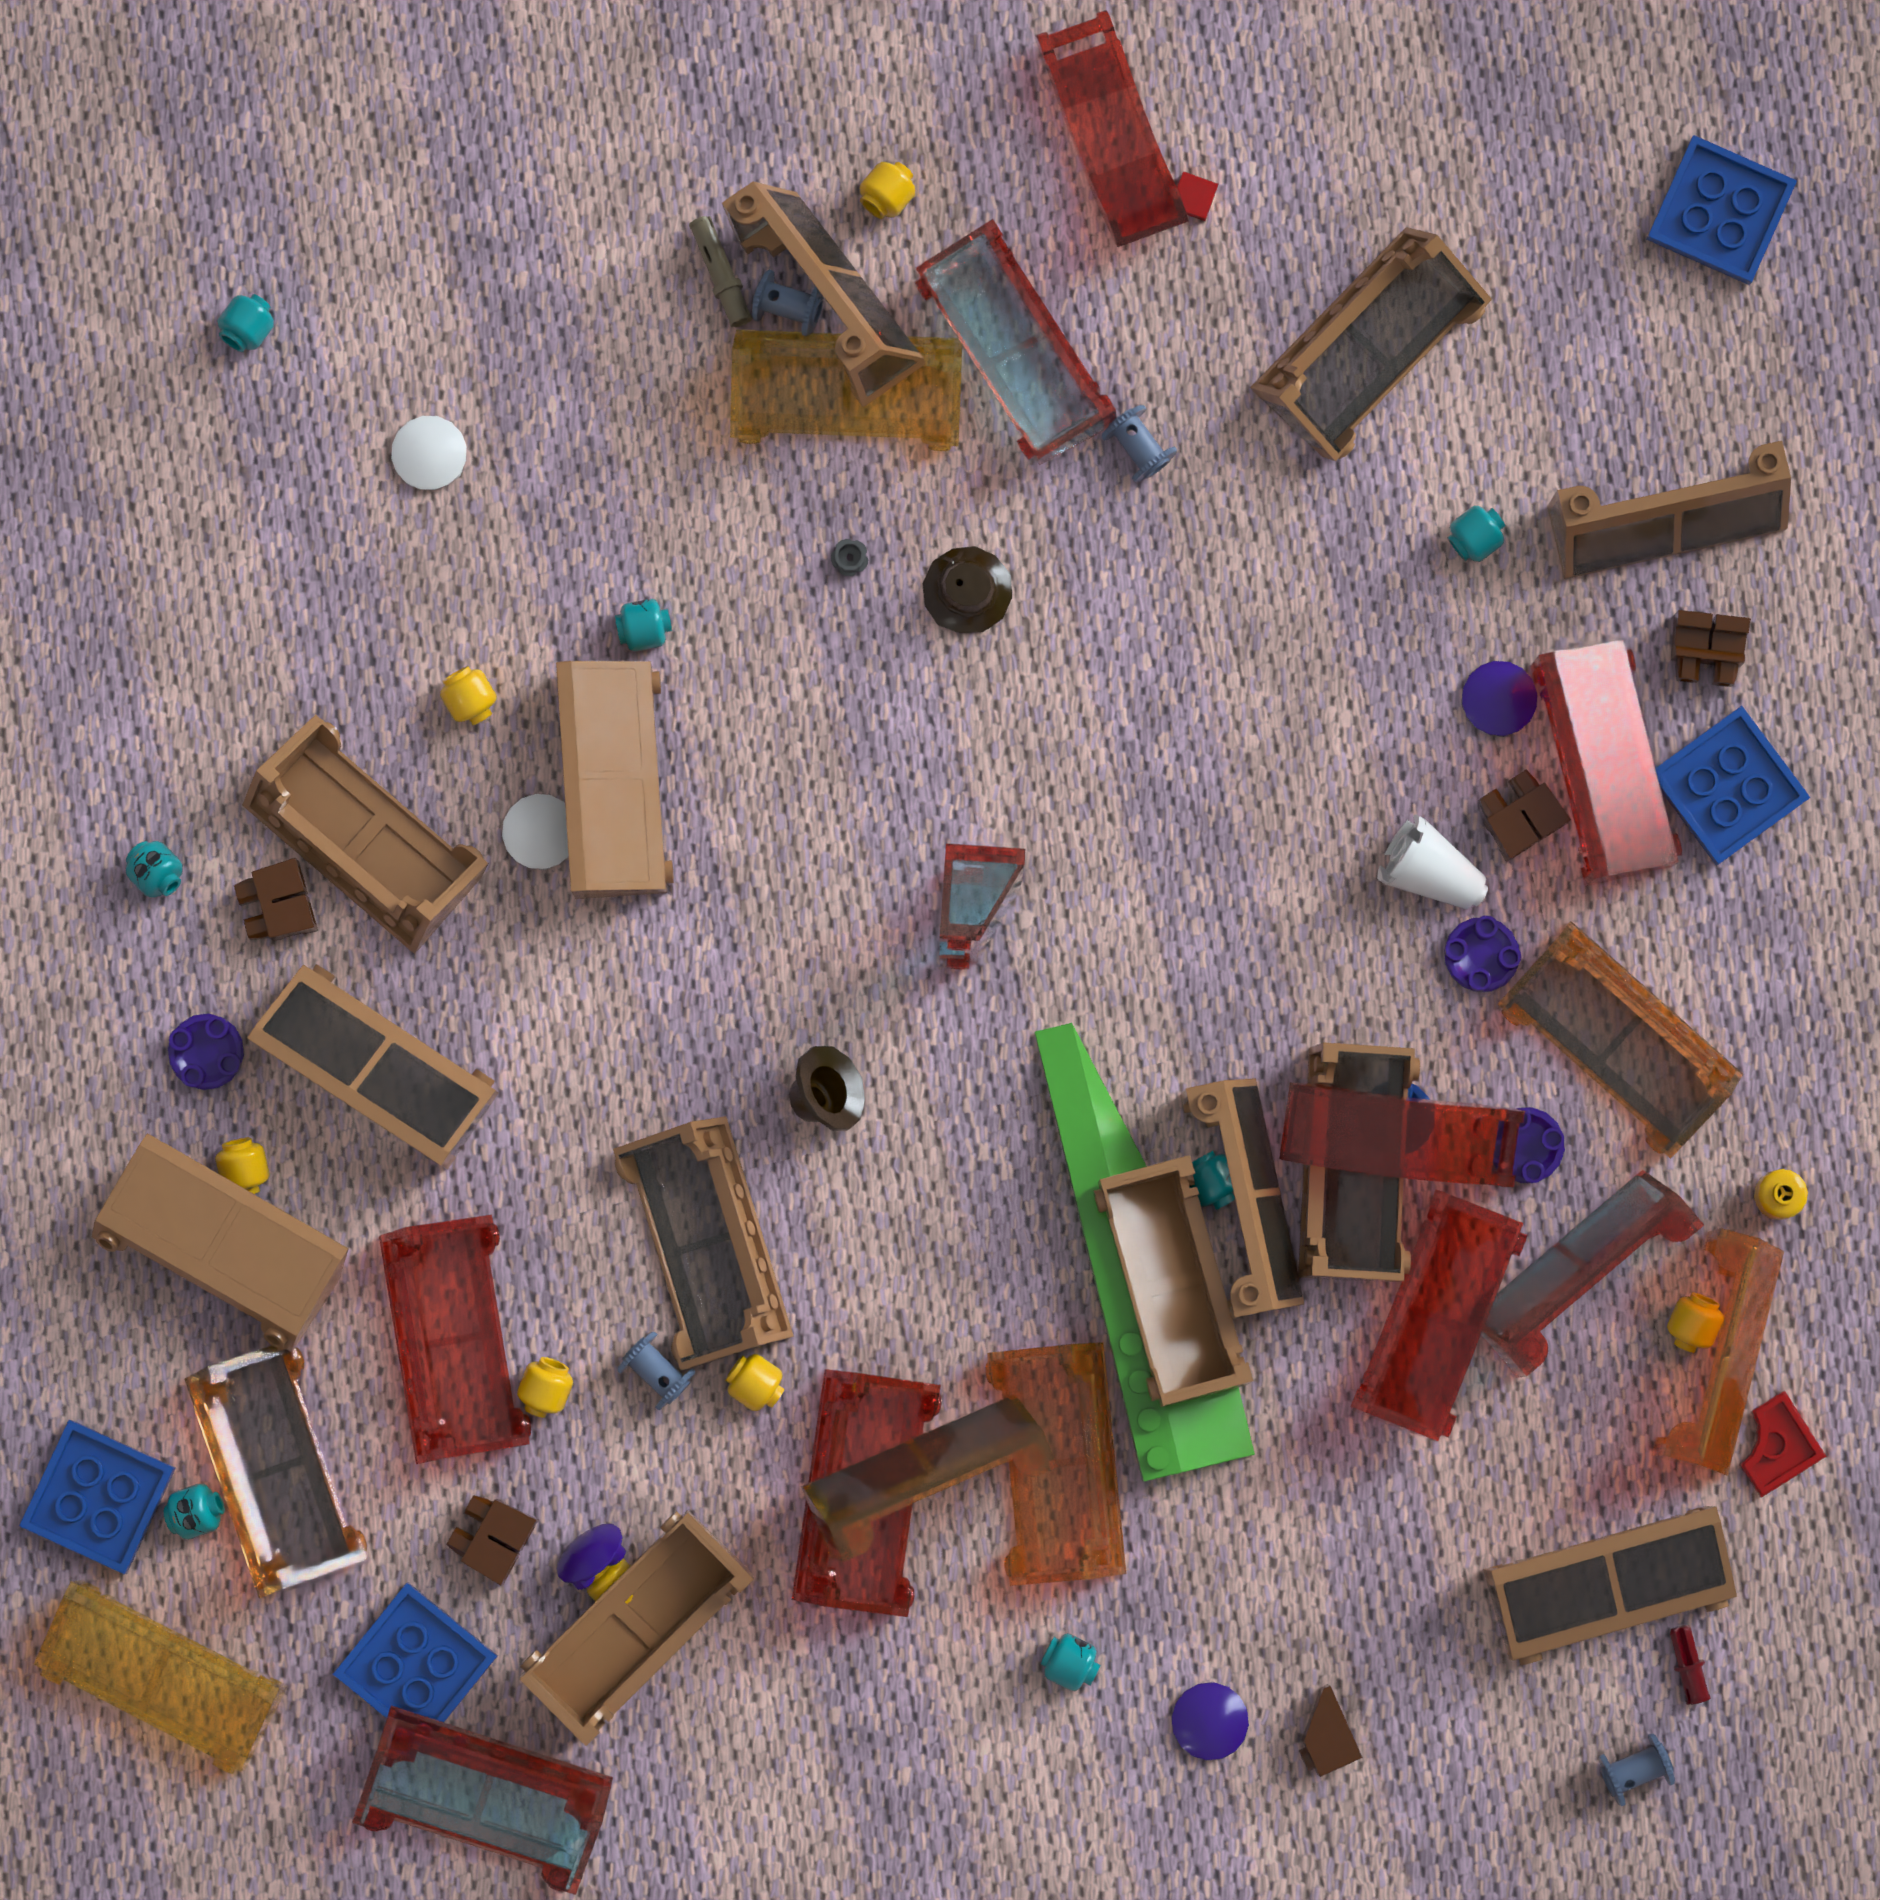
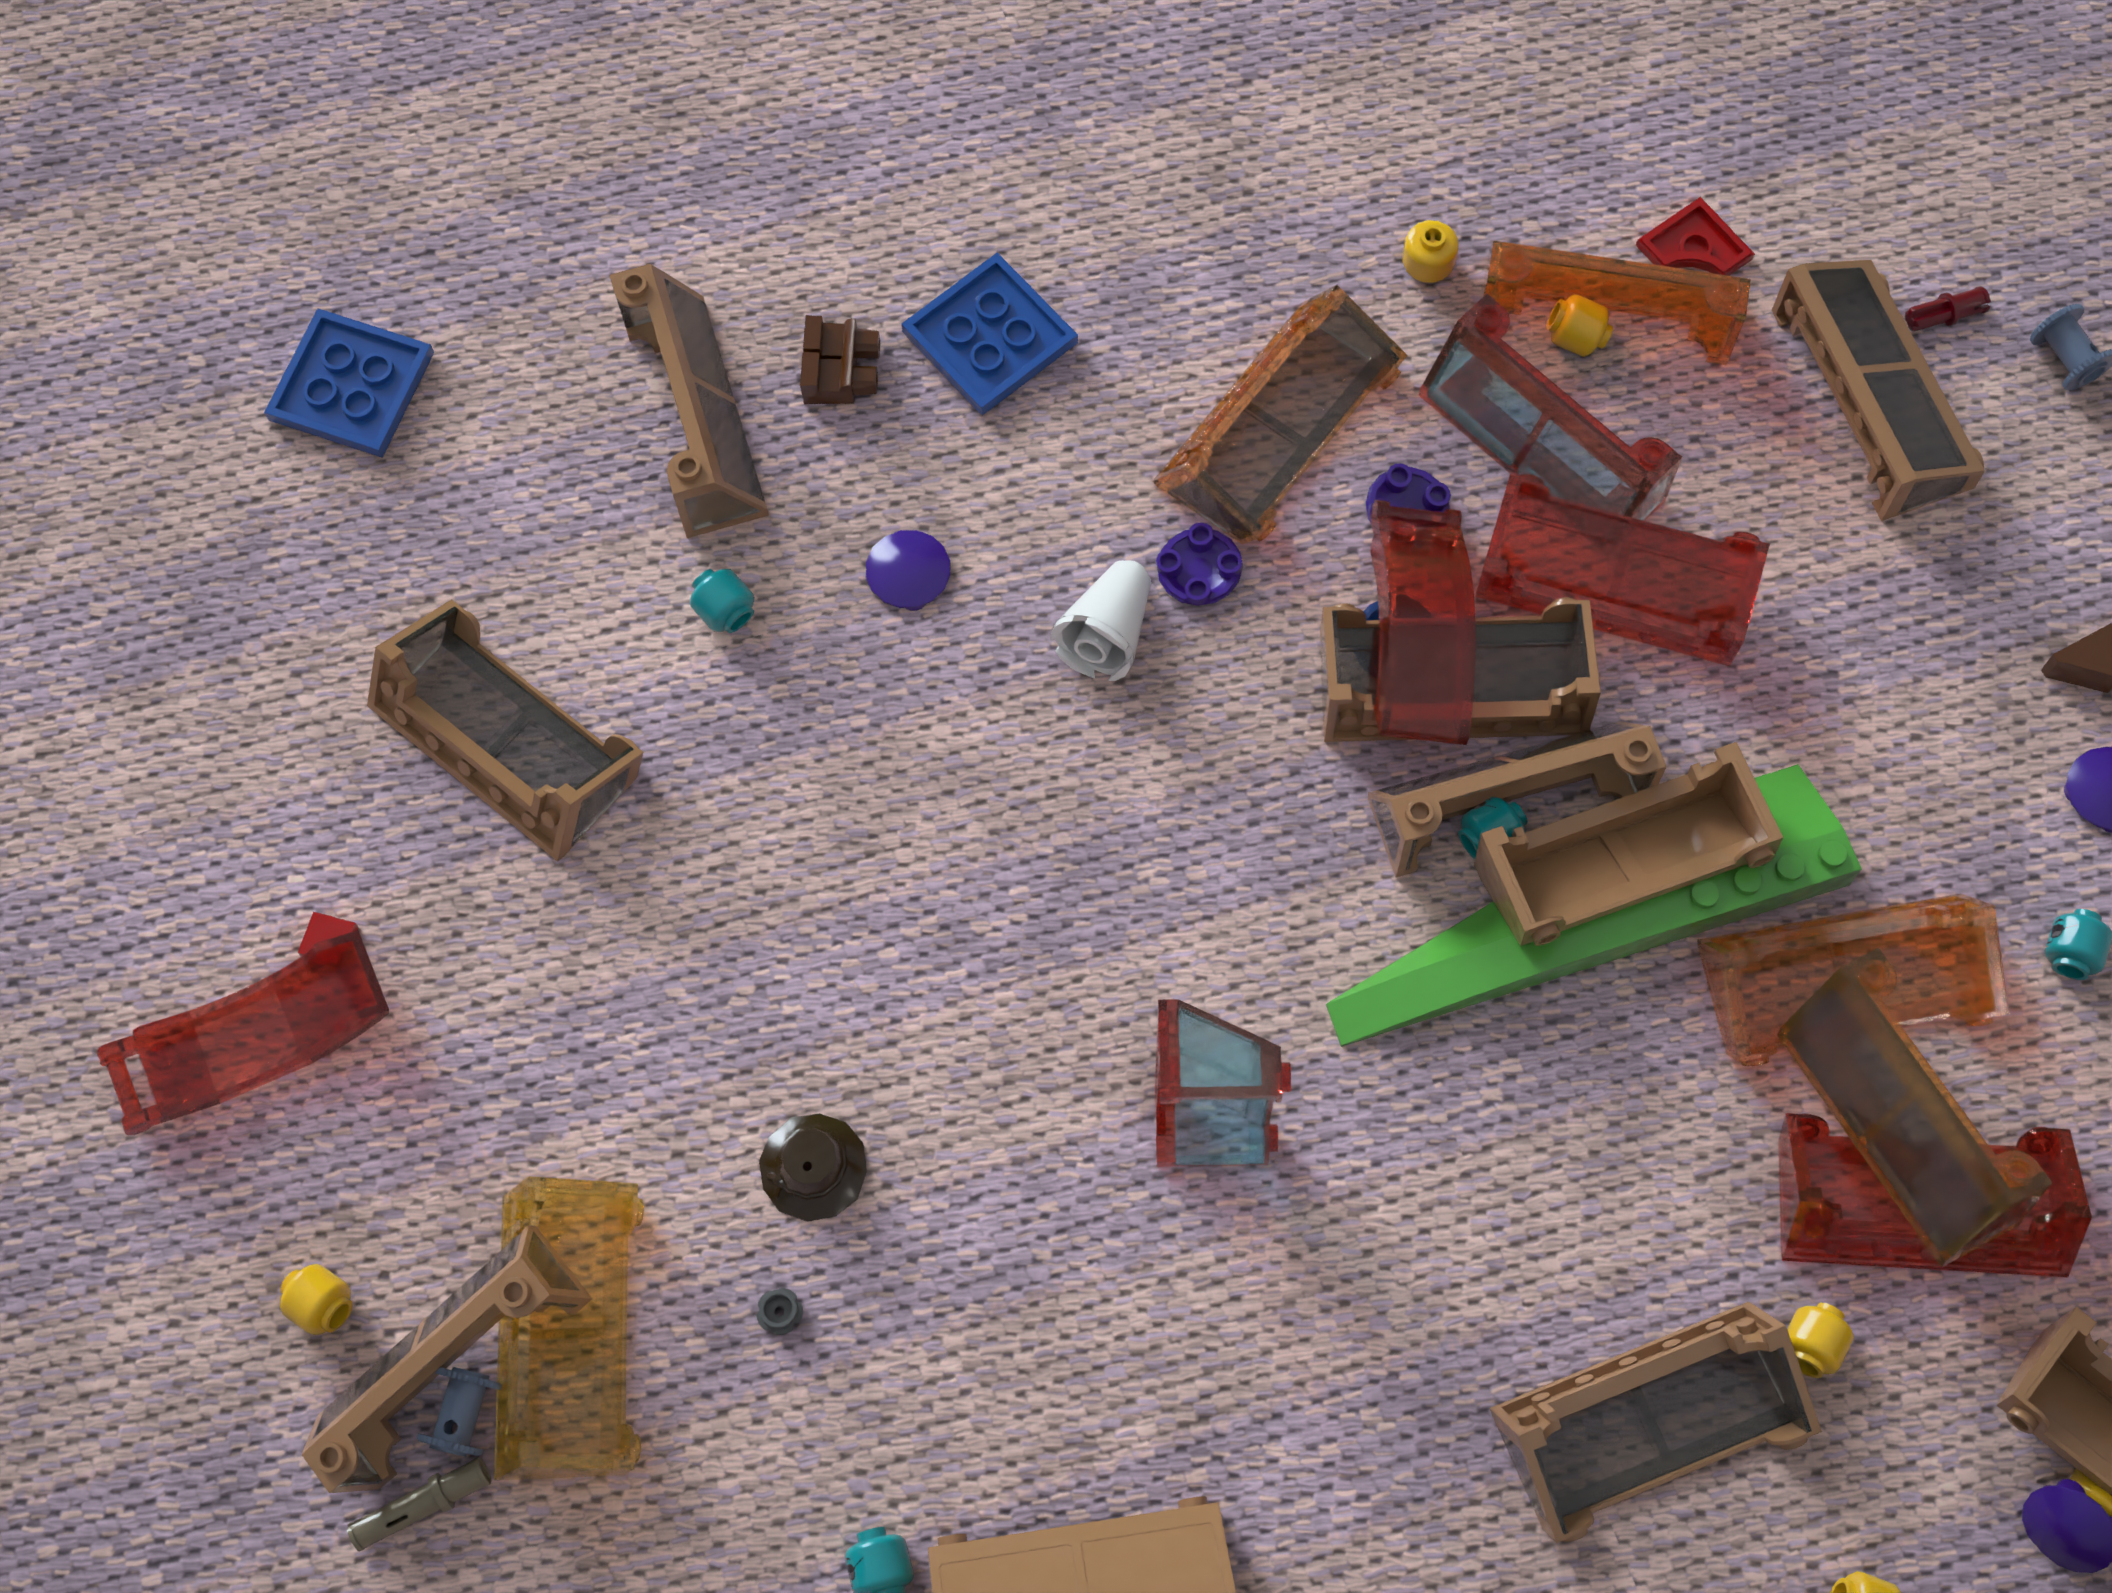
camera: 90 degrees left, 15 degrees down
(652, 1367) = (1824, 1465): sand blue hose -> none
(827, 1089) = (1447, 1279): dark brown hat -> none
(1015, 344) = (508, 1124): clear light blue windscreen -> none
(1141, 446) = (629, 974): sand blue hose -> none
(1524, 820) = (1044, 529): reddish brown hips -> none
(1606, 761) = (975, 448): clear red windscreen -> none

